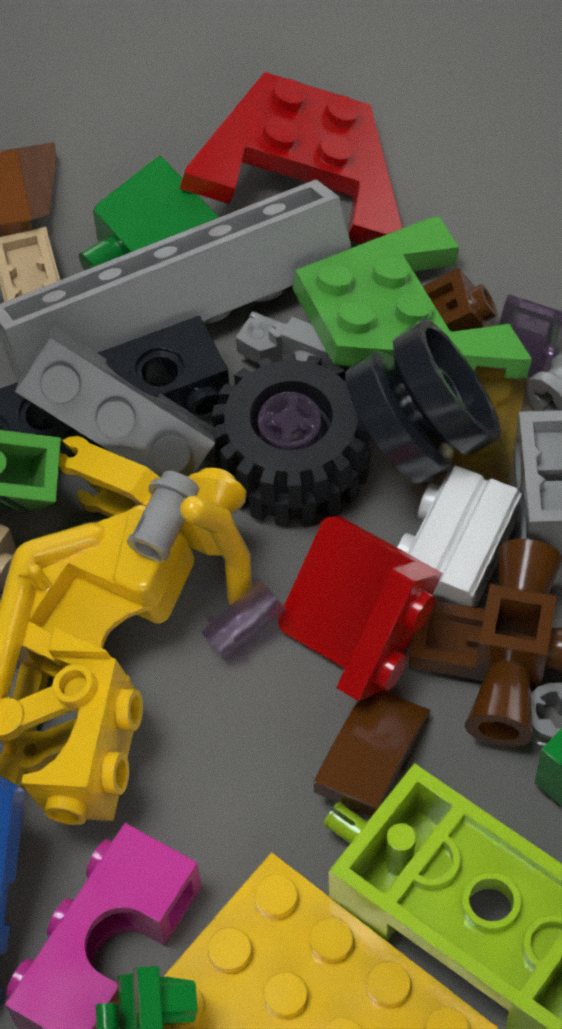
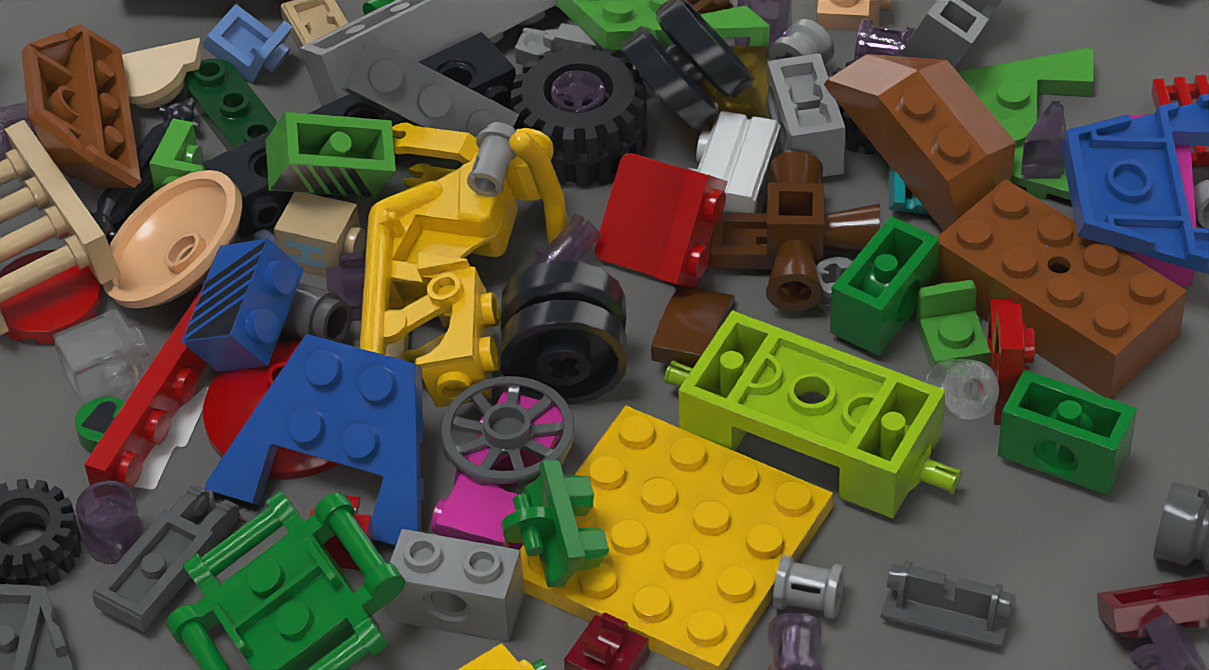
camera: 10 degrees left, 10 degrees down
(116, 889) = (506, 430): none -> dark grey wheel
(210, 752) = (564, 330): none -> black wheel

